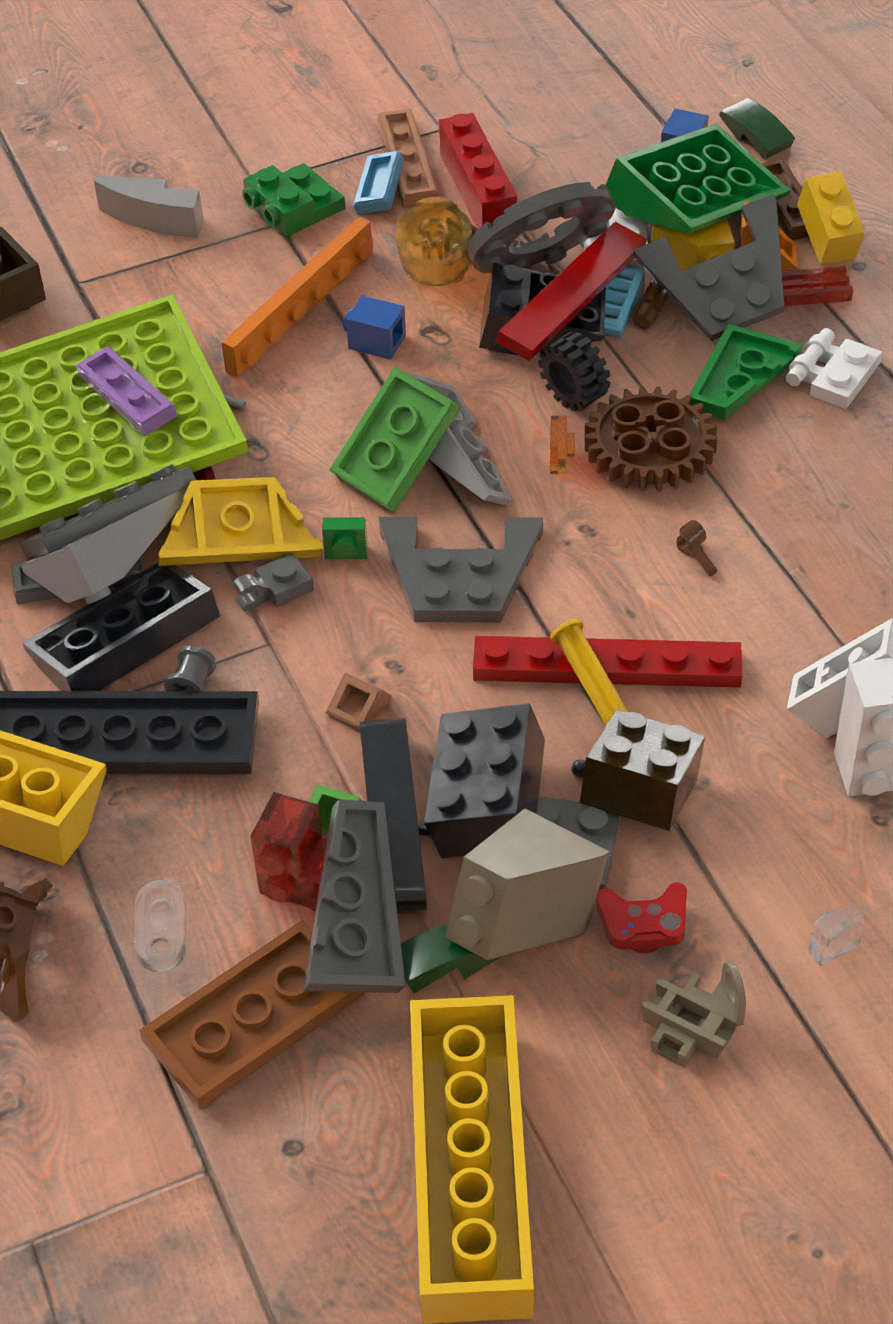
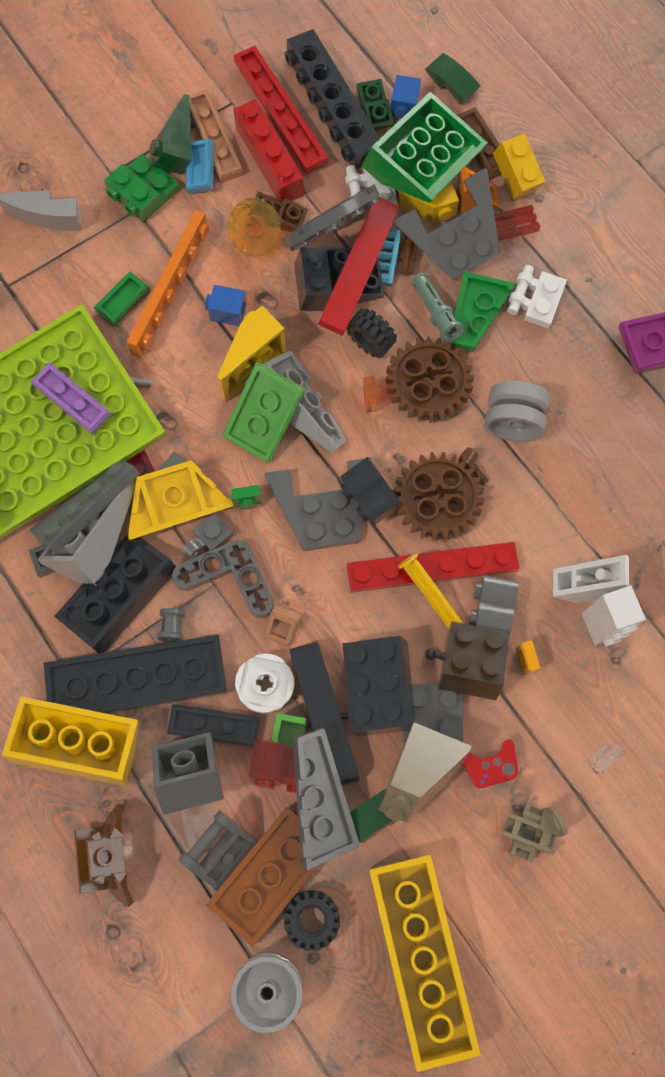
camera: 15 degrees left, 25 degrees up
(159, 843) = (186, 773): none -> dark grey brick
(185, 968) = (224, 855): none -> dark grey plate
(203, 1157) = (248, 998): none -> light grey wheel
(205, 807) = (224, 726): none -> black tile
(227, 310) = (121, 299): none -> green tile
(296, 619) = (227, 565): none -> dark grey beam
(308, 1108) = (297, 934): none -> black tyre
(317, 742) = (254, 670): none -> white plate
(348, 150) = (173, 144): none -> dark green slope
(407, 342) = (257, 340): none -> yellow slope
(505, 134) = (280, 109): none -> red plate
(530, 544) = (370, 491): none -> black brick
(574, 119) = (331, 97): none -> black brick
(633, 573) = (443, 520): none -> reddish brown gear
(637, 133) = (374, 103): none -> dark green slope
(681, 362) = (441, 314): none -> sand green pin
(697, 704) = (494, 604): none -> dark grey brick
(733, 786) = (528, 658): none -> light orange tile
(772, 477) = (517, 411): none -> light grey wheel

